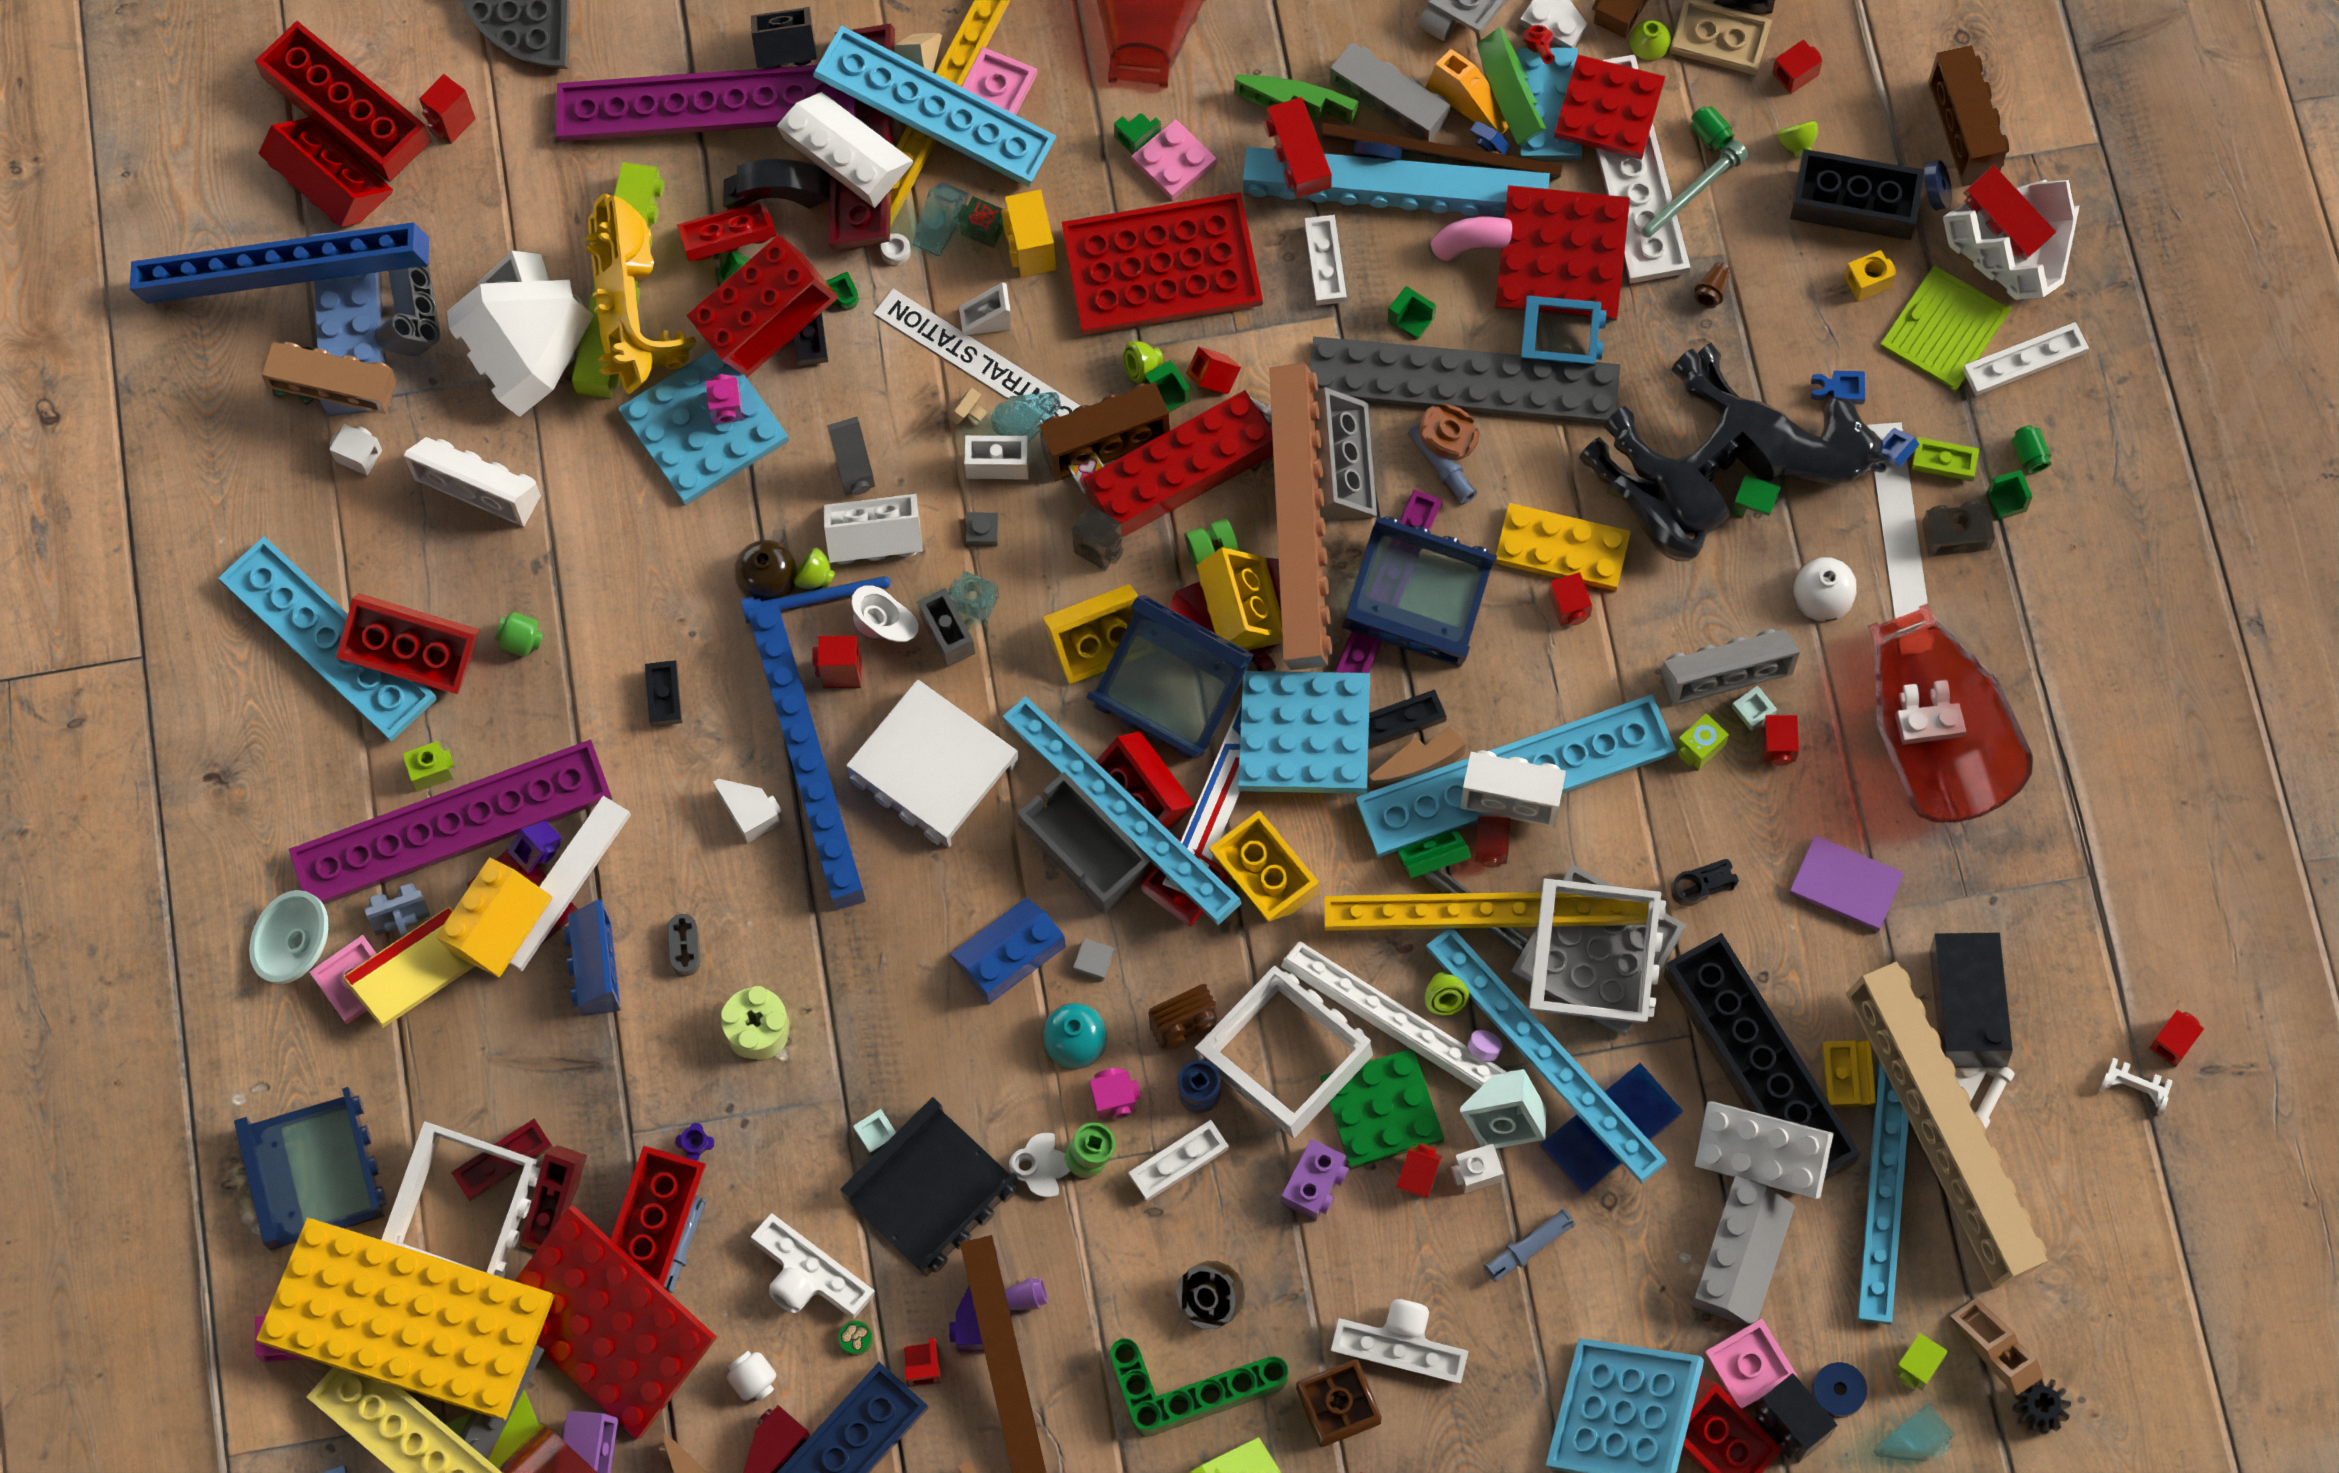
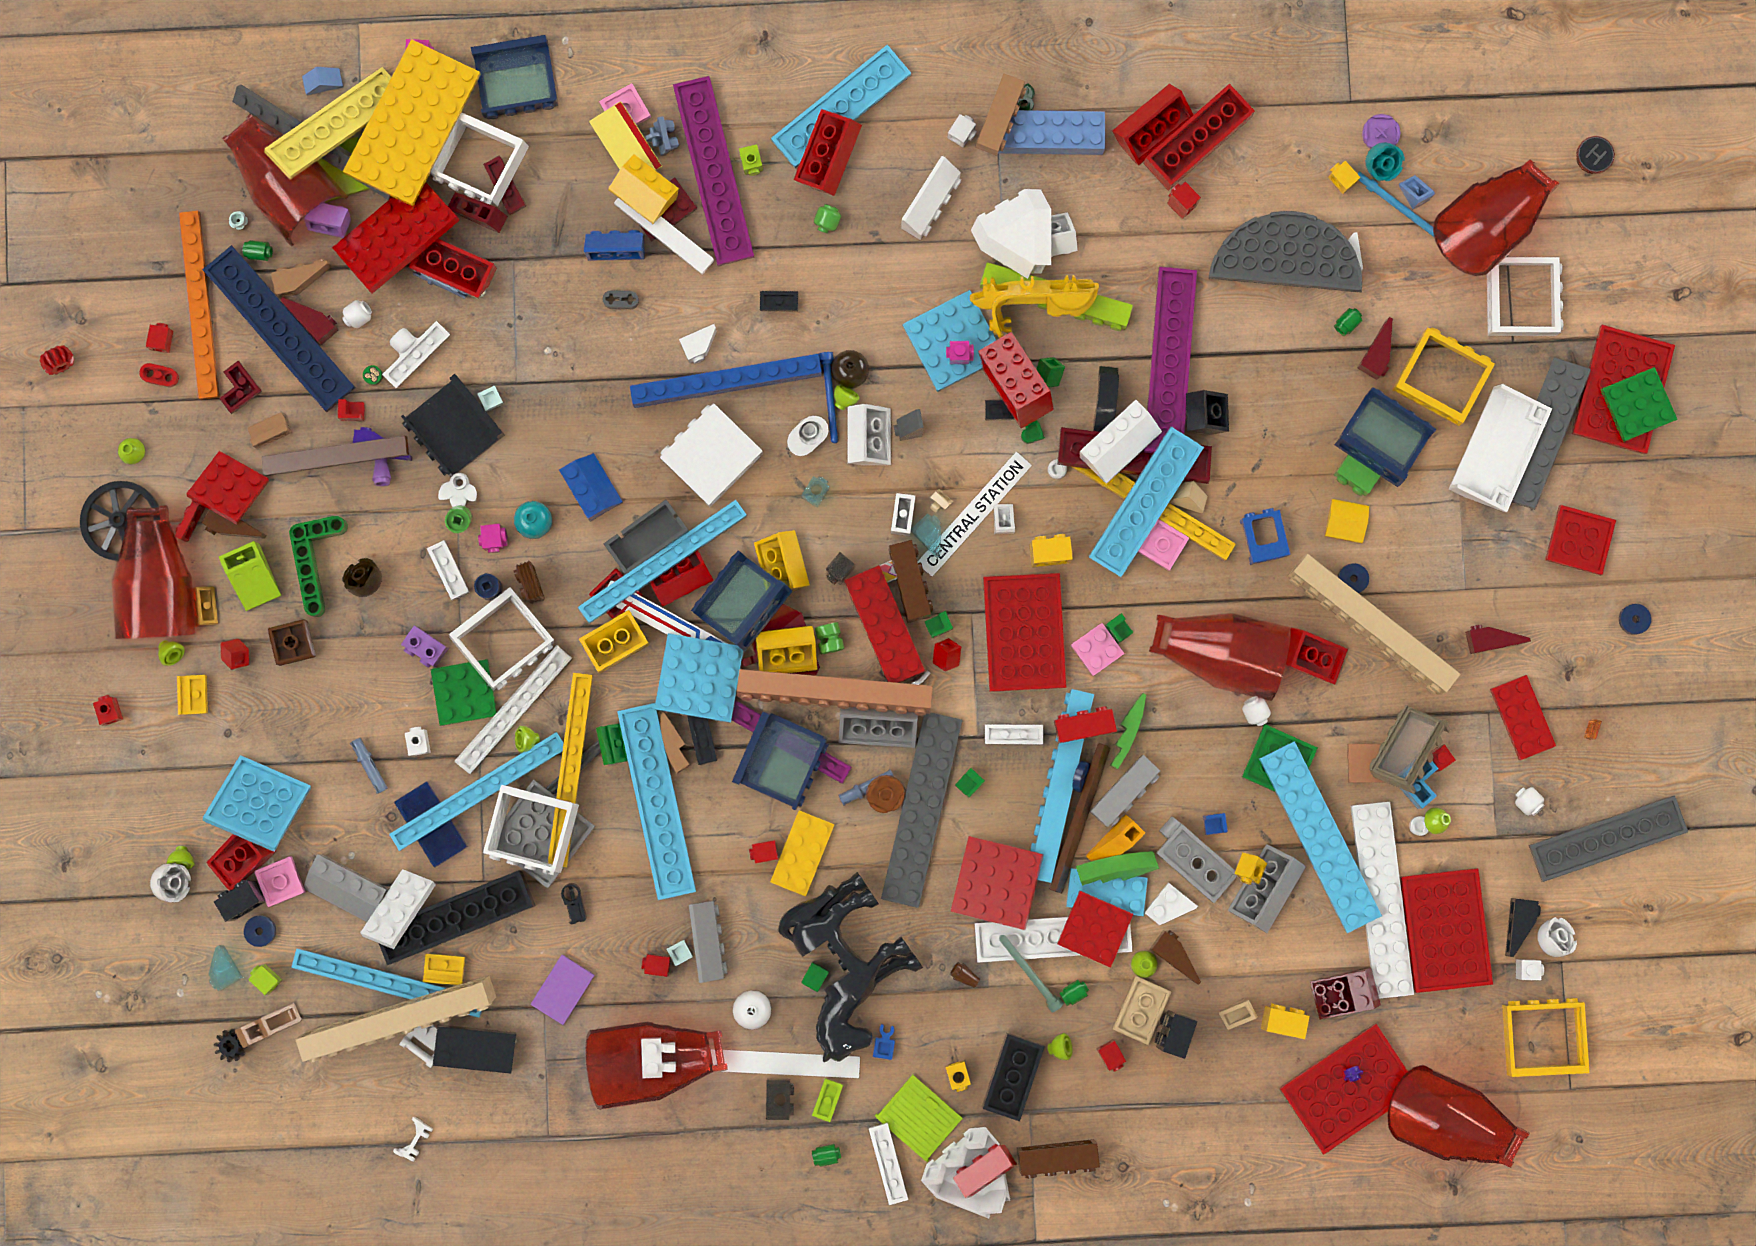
camera: 90 degrees right, 15 degrees up
(280, 263) = (1081, 90): blue brick -> none
(289, 937) = (652, 72): light aqua dish -> none
(416, 319) = (1084, 165): dark grey beam -> none
(534, 845) = (689, 217): dark purple brick -> none
(694, 1132) = (500, 290): dark purple plate -> none
(726, 231) = (1078, 365): red plate -> none
(760, 1006) = (573, 331): yellowish green brick -> none
(838, 661) = (780, 404): red brick -> none
(939, 218) = (1073, 498): clear light blue slope -> none
(946, 627) = (795, 471): dark grey brick -> none
(981, 221) = (1067, 523): clear green brick -> none
(982, 529) = (861, 501): dark grey plate -> none
(1094, 959) = (578, 536): light grey tile -> none
(1140, 359) = (958, 611): lime brick -> none
(1401, 1343) = (321, 683): white plate -> none
(1419, 1170) = (419, 707): red brick -> none
(1470, 234) = (1014, 827): bright pink cylinder -> none
(1484, 1045) = (491, 757): lavender tile -> none
(1489, 138) = (1082, 849): blue plate -> none
(1492, 841) = (616, 780): clear red brick -> none
(1506, 1111) = (444, 763): light aqua slope -> none
(1512, 788) = (639, 795): white brick -> none
(1530, 326) = (957, 876): dark azure window -> none
(1538, 40) = (1150, 891): red plate -> none
(1701, 742) = (661, 916): lime brick -> none
(1898, 446) = (838, 1071): blue plate -> none
(1938, 185) = (1012, 1129): dark blue piece -> none
(2009, 494) = (796, 1135): green panel -> none
(2177, 1037) = (437, 1169): red brick -> none

